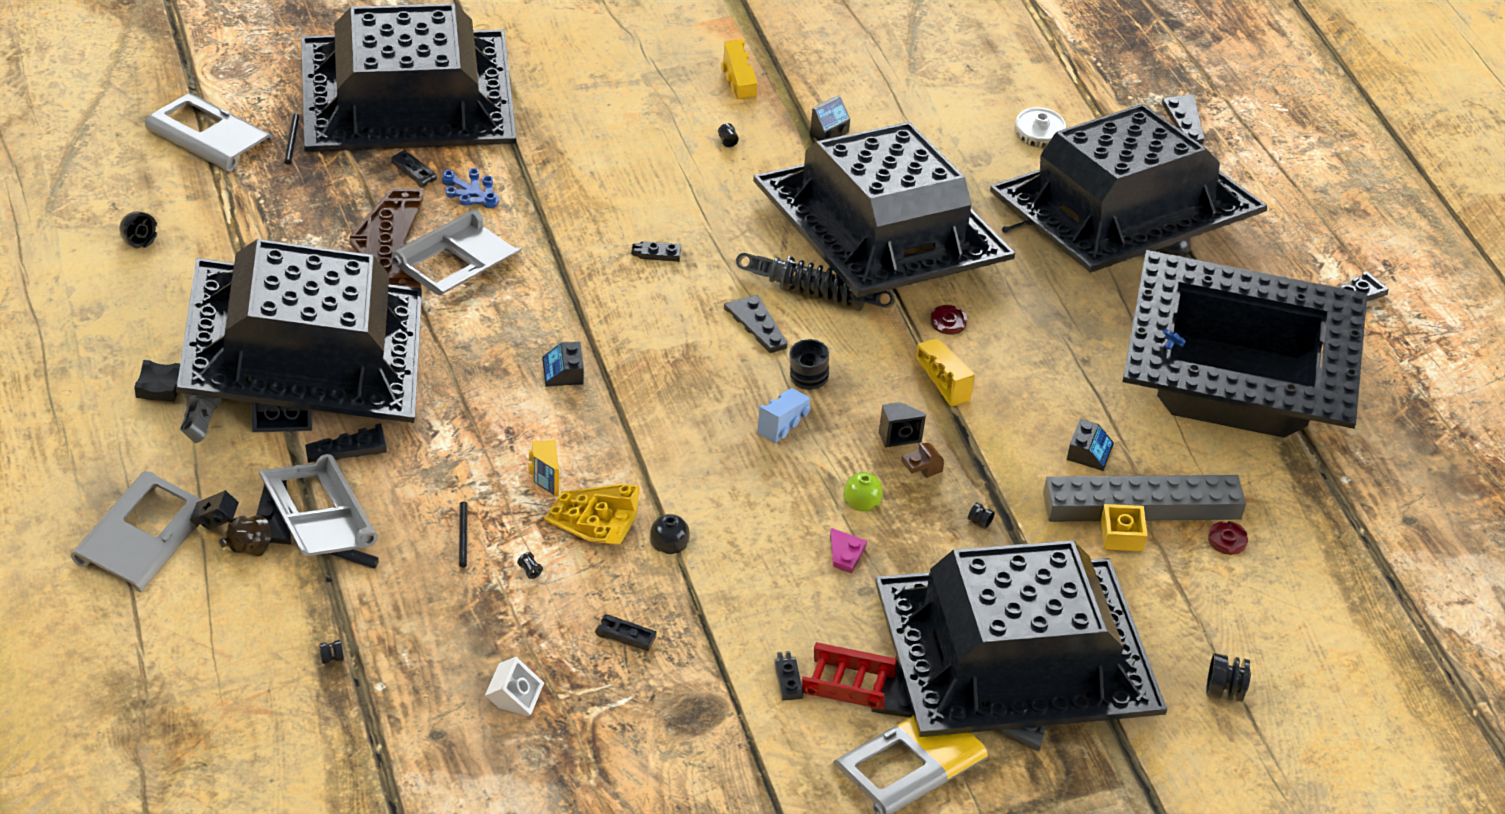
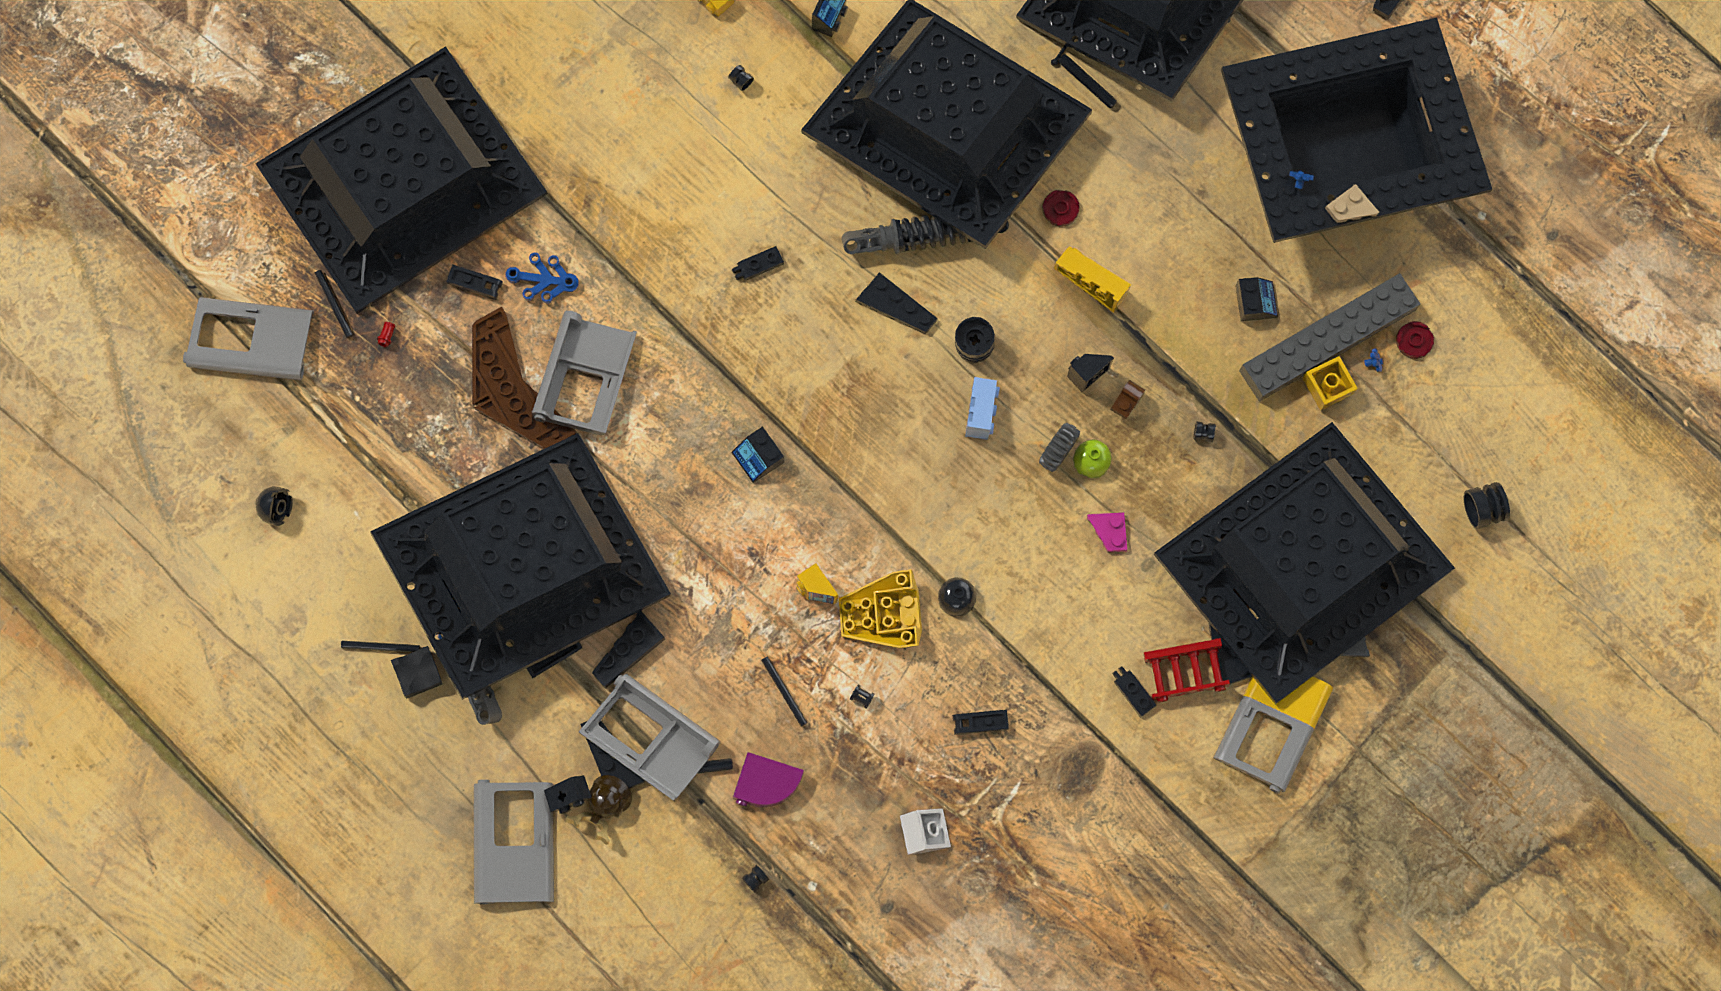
camera: 30 degrees left, 30 degrees up
(137, 352) = (379, 646): none -> black bar
(313, 172) = (386, 334): none -> red pin
(396, 587) = (766, 782): none -> magenta brick
(836, 464) = (1059, 447): none -> dark grey gear
(1027, 251) = (1087, 81): none -> black axle
(1179, 533) = (1374, 360): none -> blue plant
(1209, 377) = (1351, 205): none -> tan wing

